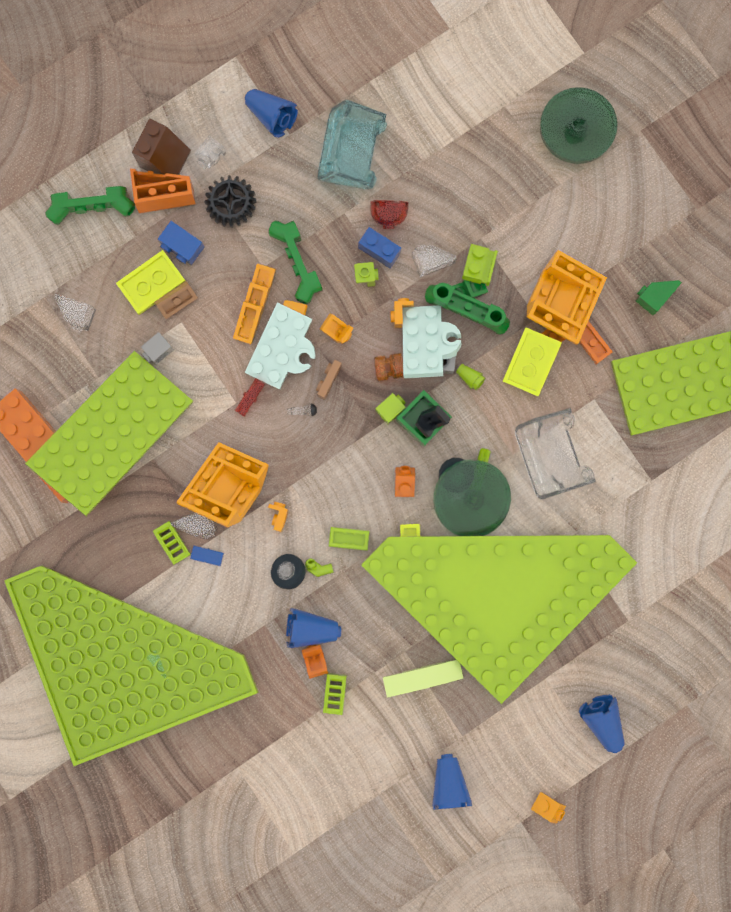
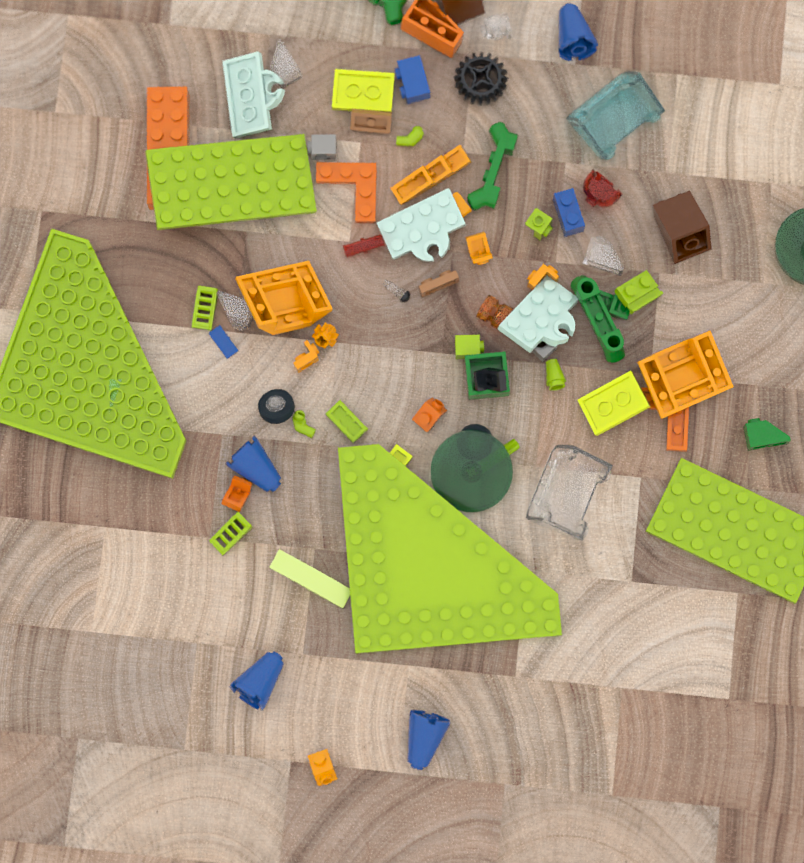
camera: 45 degrees right, 5 degrees down
(68, 354) = (250, 94): none -> light aqua plate
(200, 346) = (353, 173): none -> orange plate
(217, 288) = (412, 138): none -> lime arm
(279, 488) = (325, 335): none -> light orange gear
(470, 189) = (682, 226): none -> reddish brown slope

